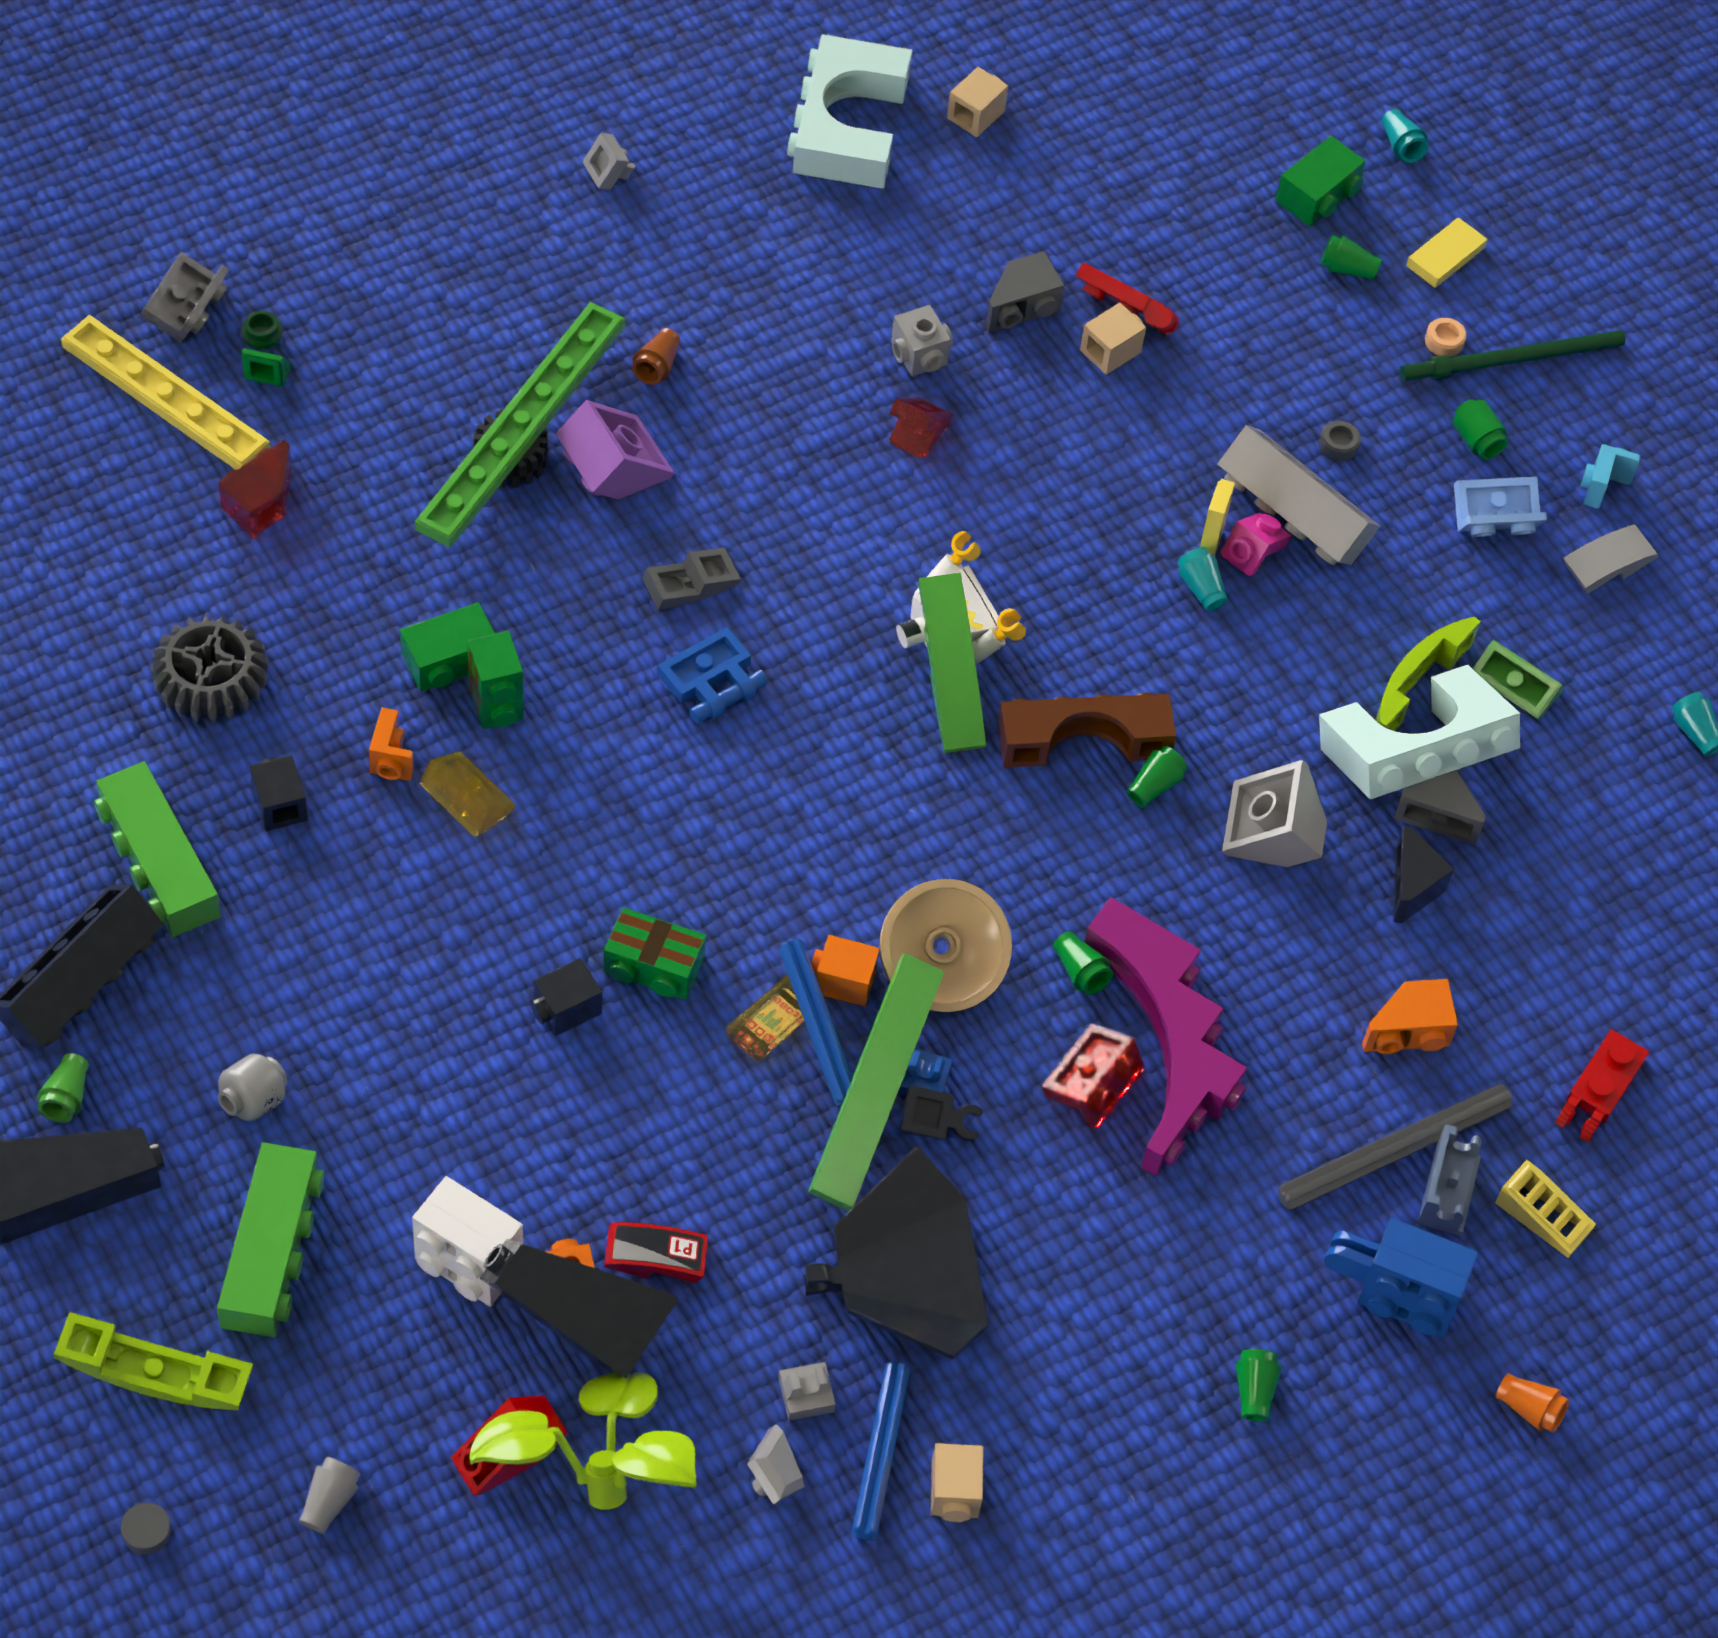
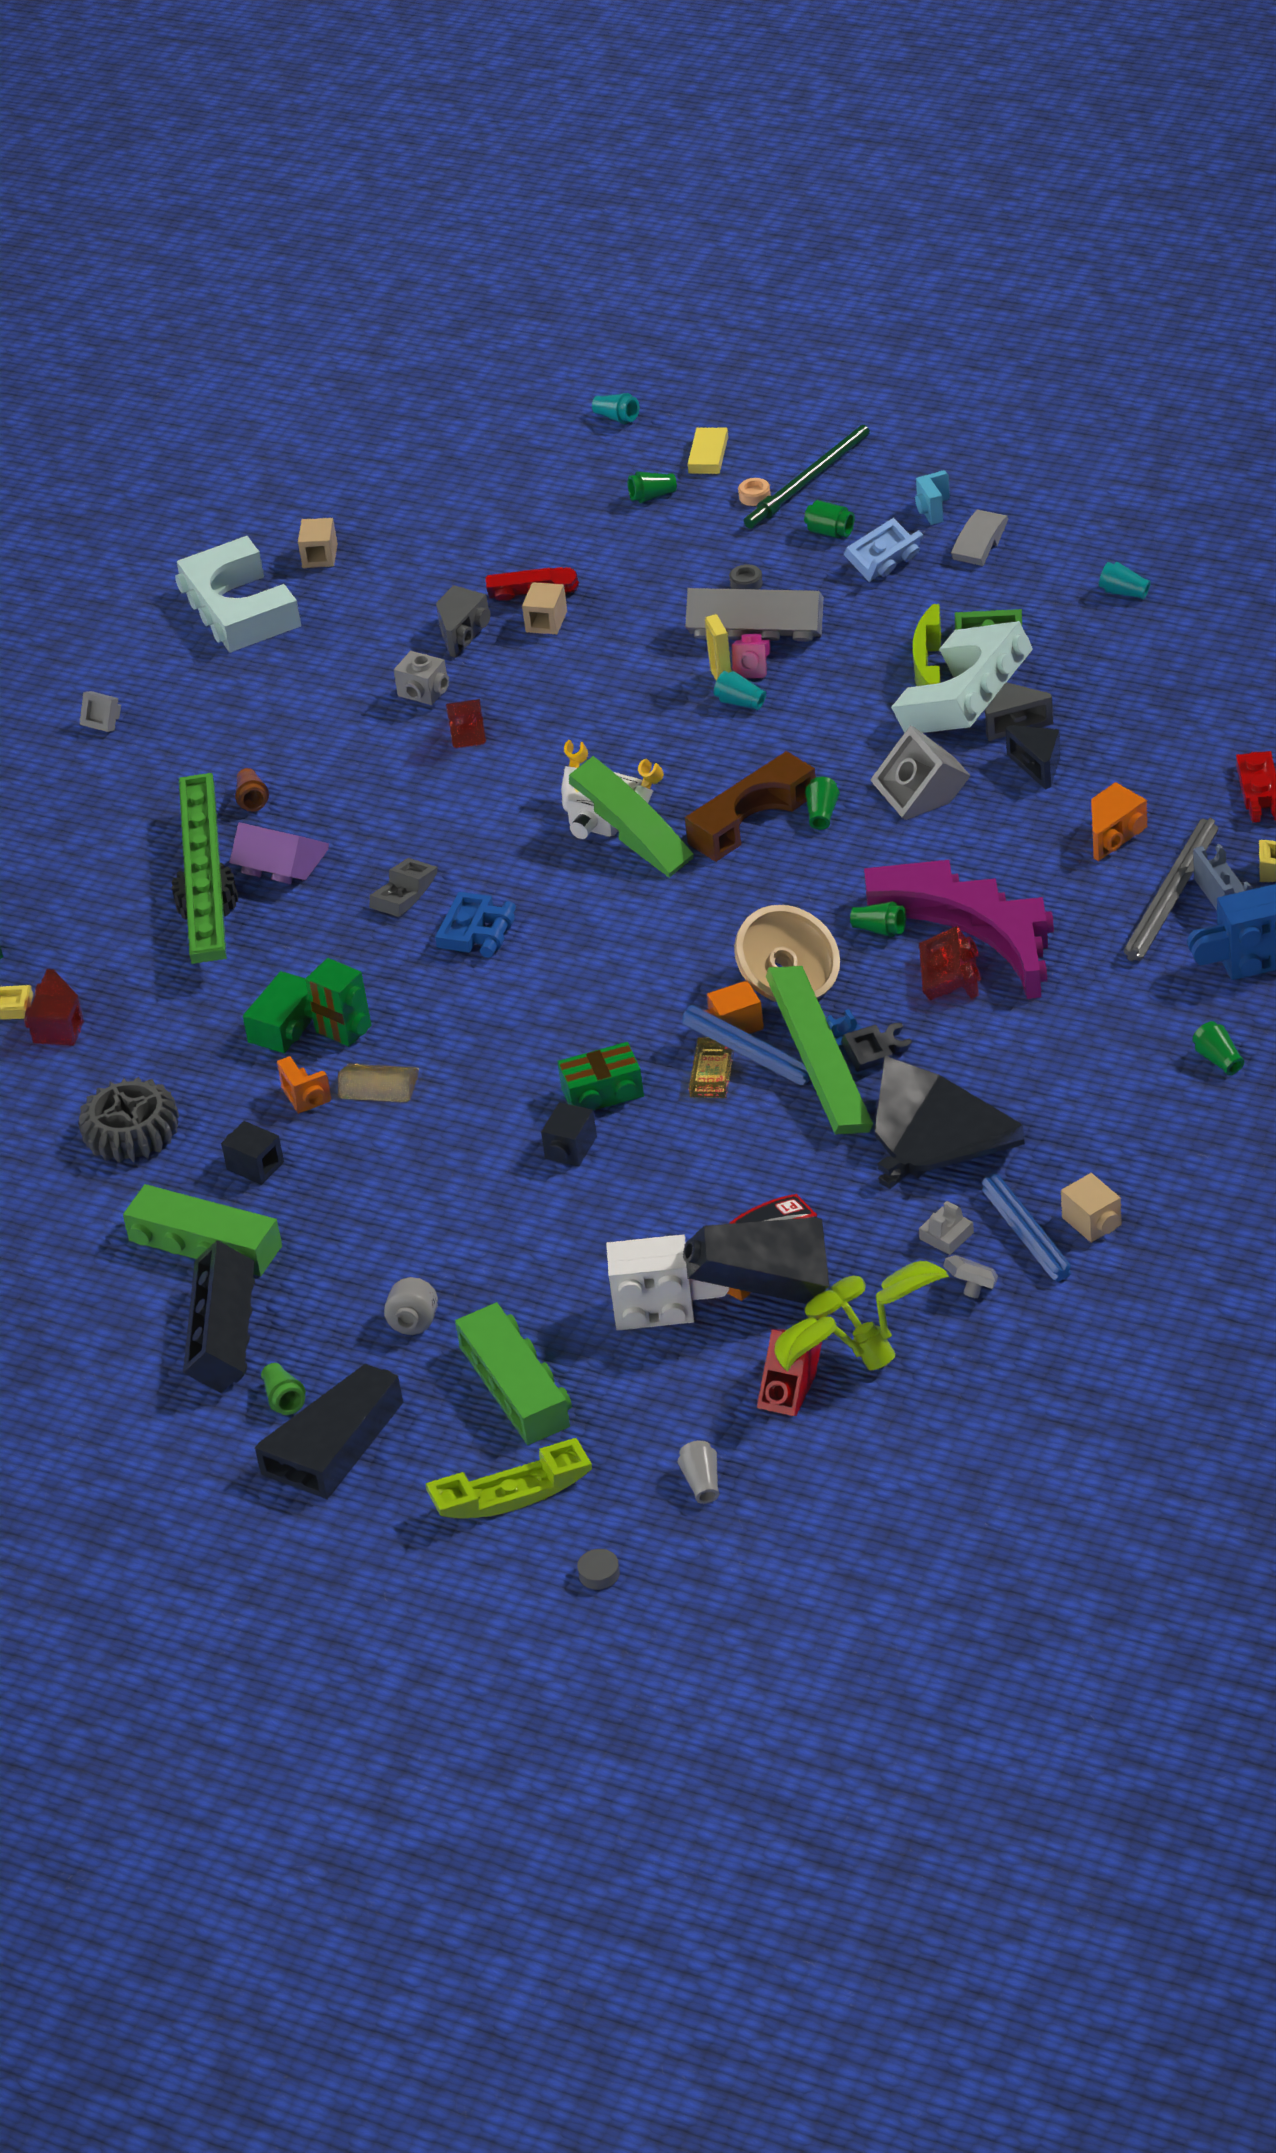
camera: 25 degrees left, 15 degrees down
(1321, 181) = (589, 457): green brick -> none

